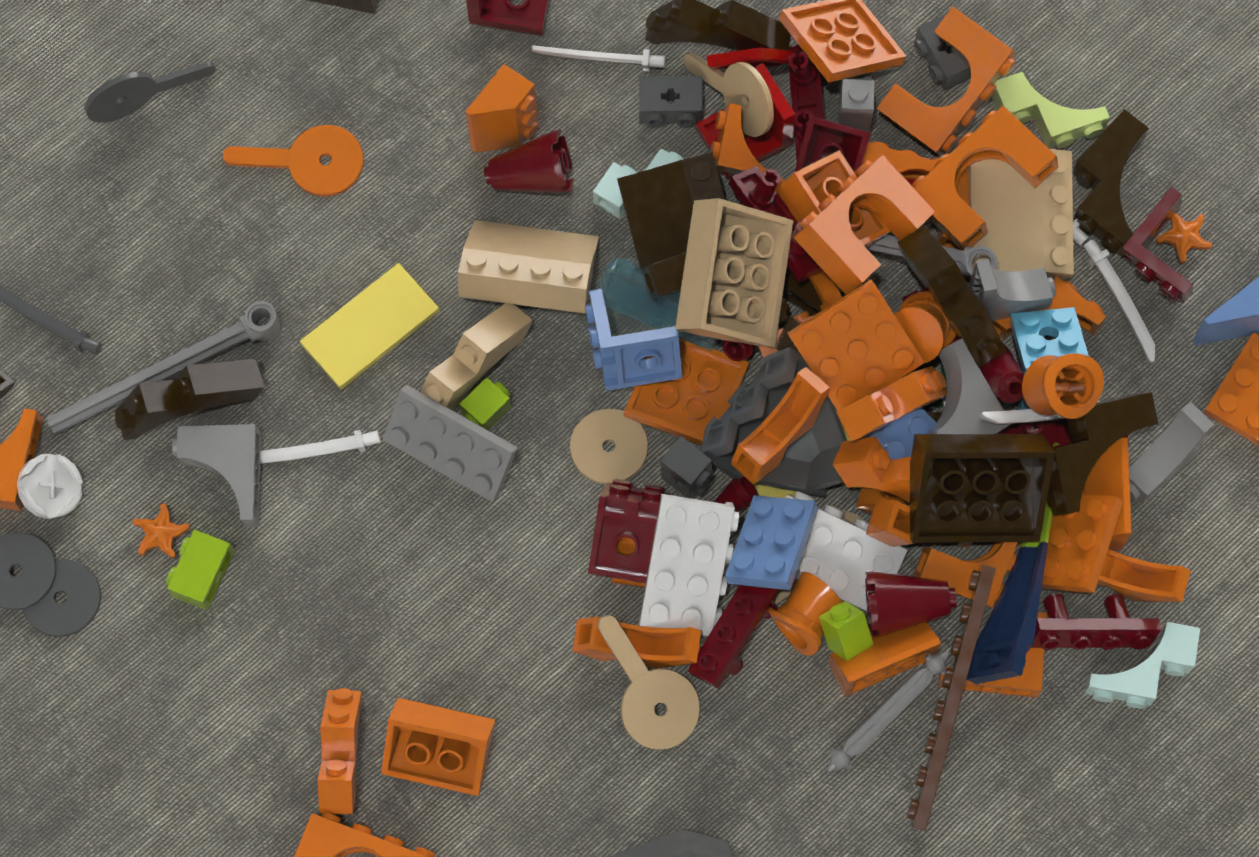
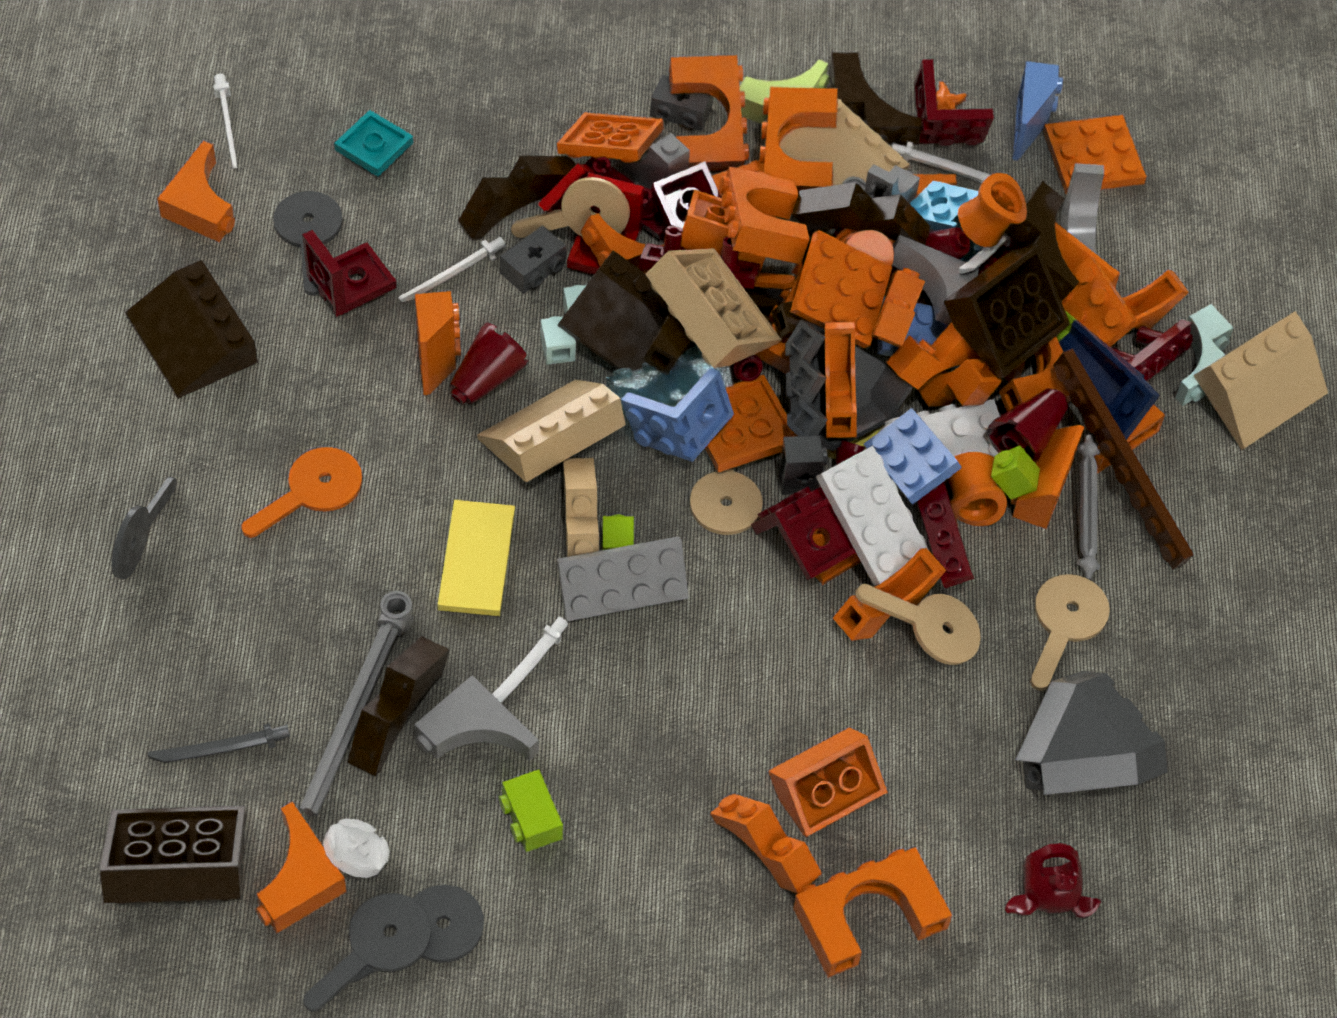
camera: 50 degrees left, 15 degrees down
(160, 532) = (473, 813): orange animal -> none
(768, 790) = (1065, 624): none -> tan piece
(1167, 736) = (1265, 380): none -> tan slope

